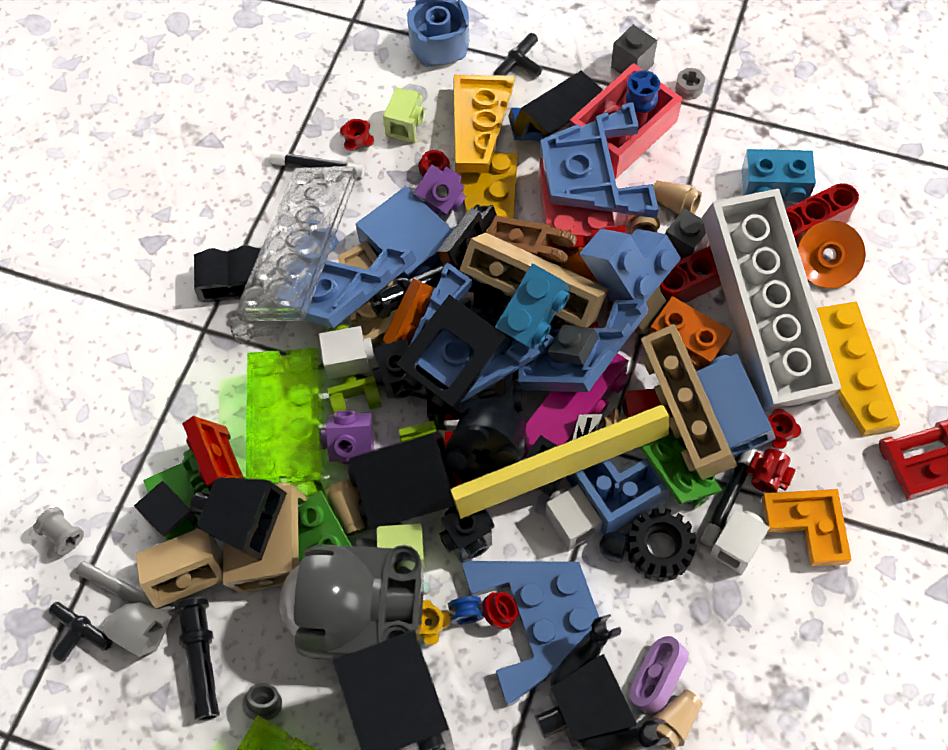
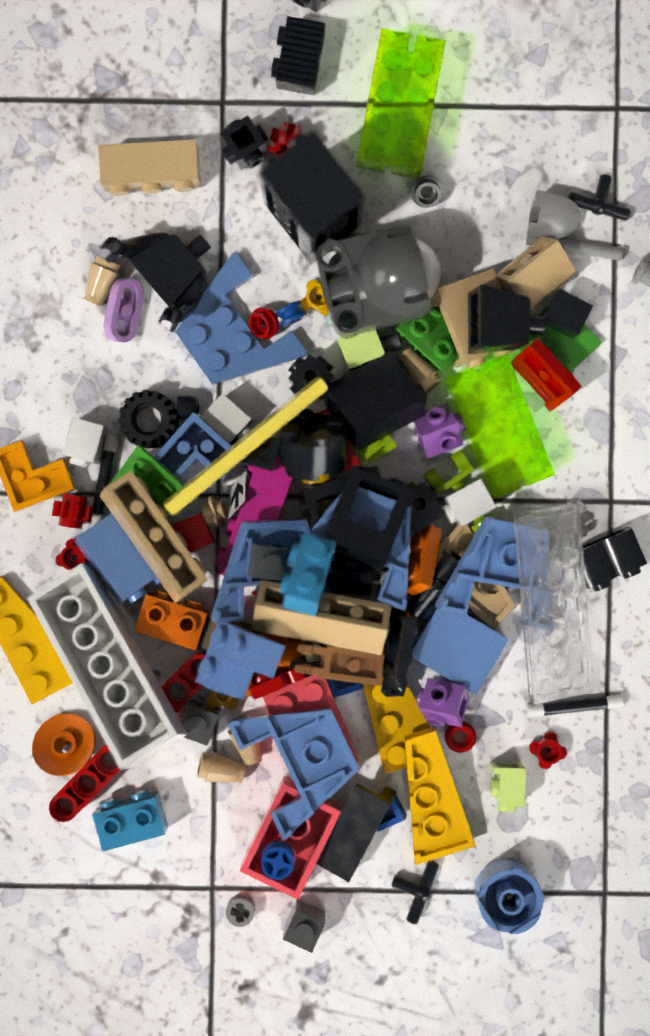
camera: 155 degrees right, 25 degrees up
(196, 642) = (499, 223): black pin -> none

